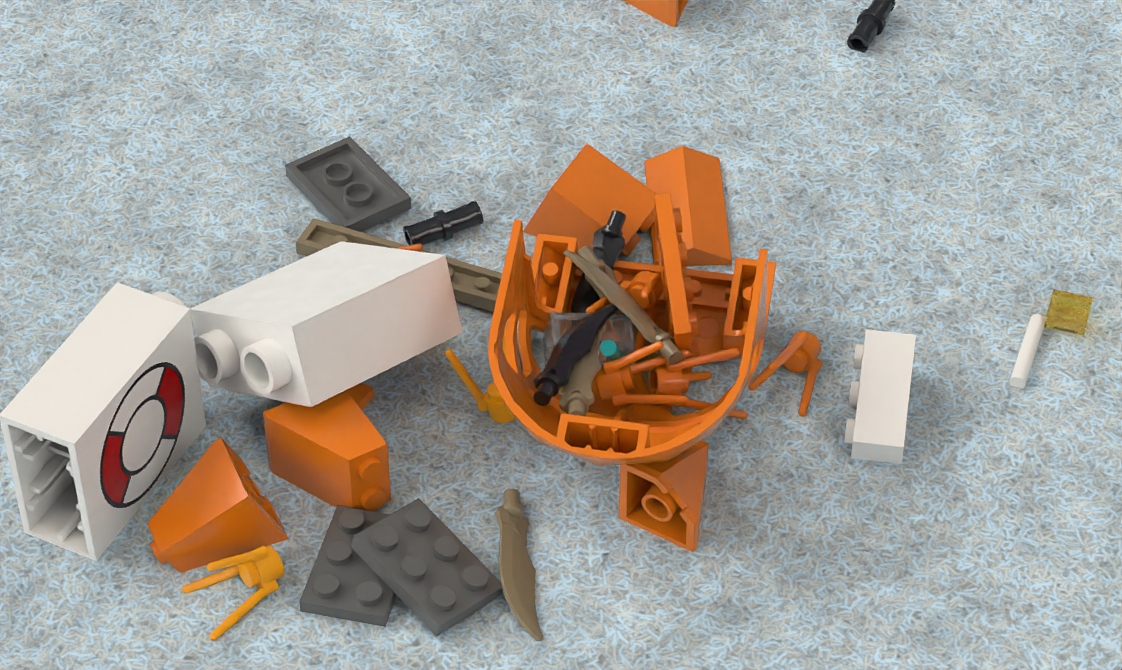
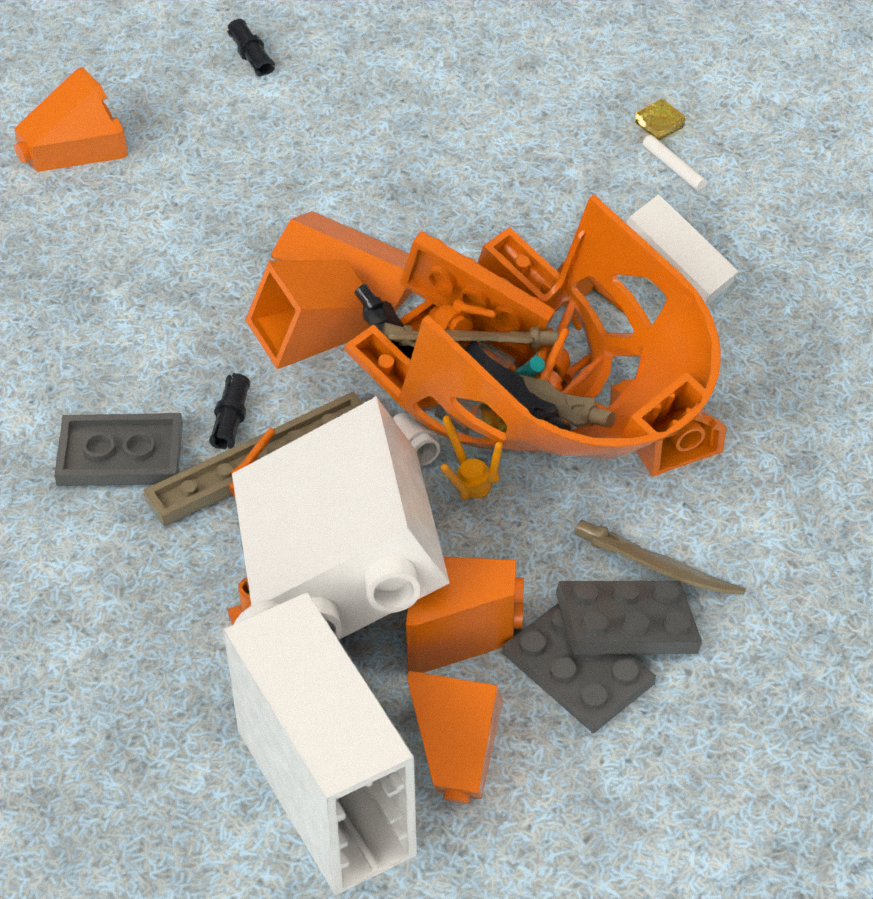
camera: 55 degrees left, 5 degrees up
(255, 568) = (535, 739): light orange plant -> none

